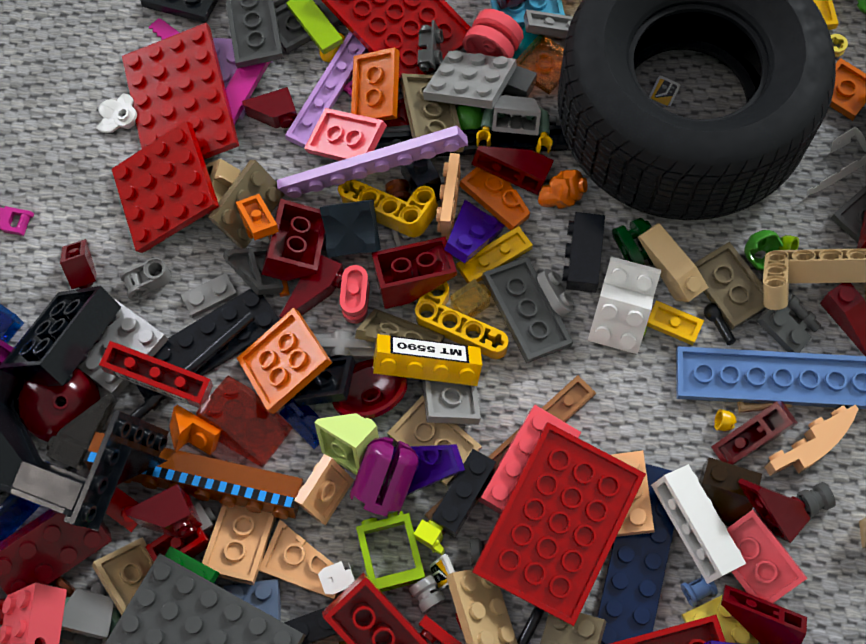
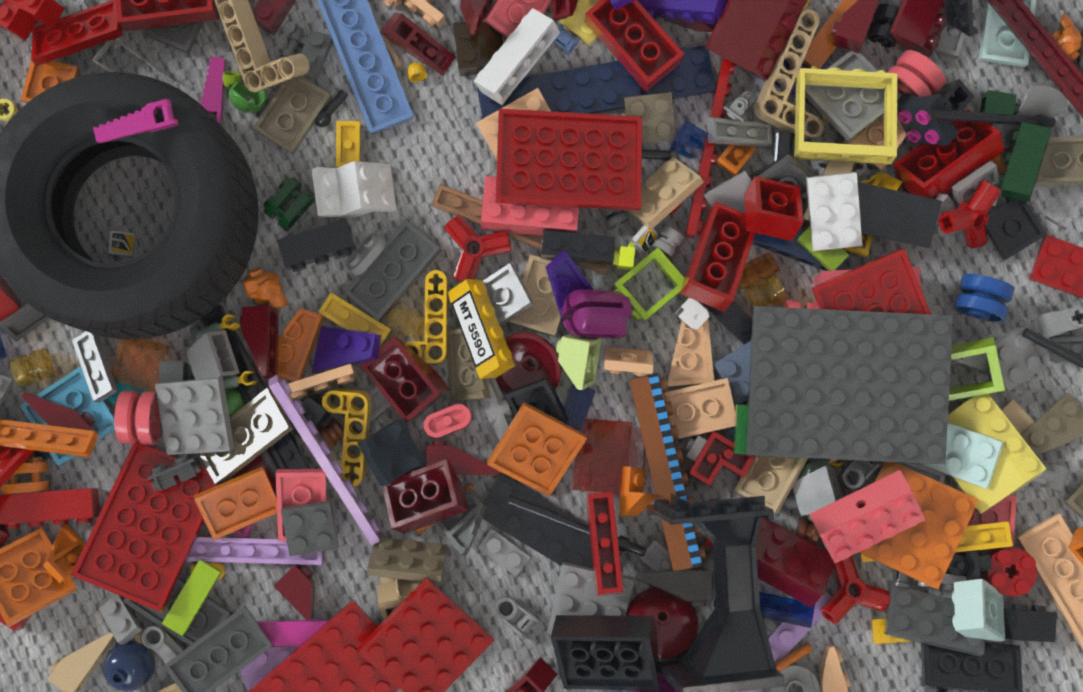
camera: 115 degrees left, 15 degrees up
(167, 513) = (715, 464): dark red slope -> none
(256, 217) = (422, 536): orange slope -> none
(320, 134) = (309, 528): none -> dark grey plate
(509, 408) = (464, 237): none -> red piece
(676, 267) = (297, 166): tan slope -> none
(764, 97) = (137, 122): none -> dark pink piece
(779, 224) = (214, 88): none -> dark pink piece

